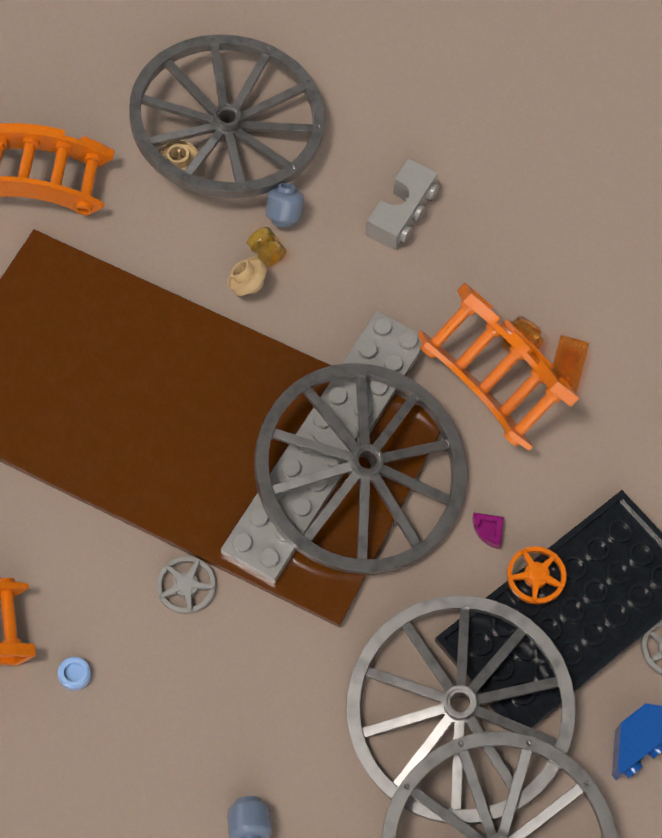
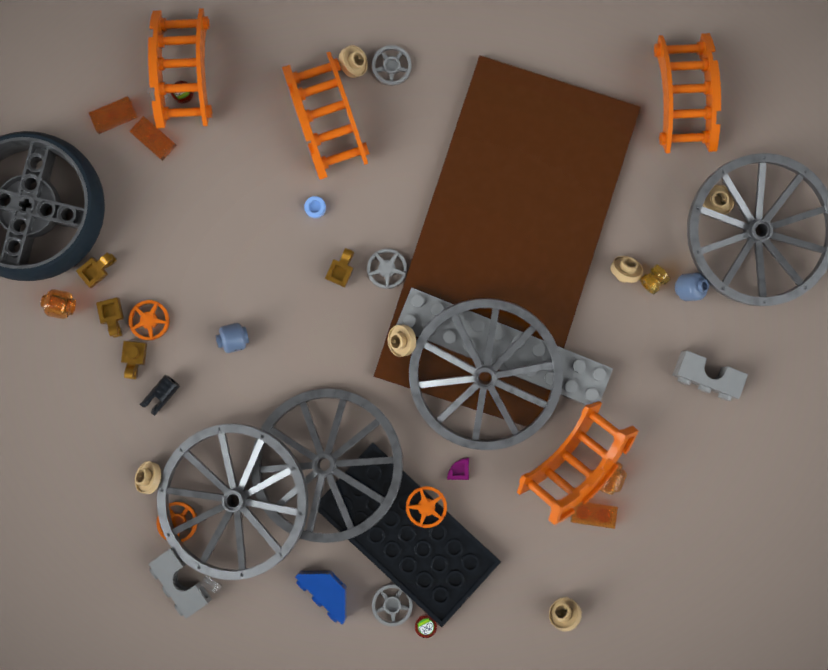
camera: 85 degrees right, 20 degrees up
(177, 648) = (339, 270): none -> pearl gold plate
(295, 571) = (401, 340): none -> tan plate

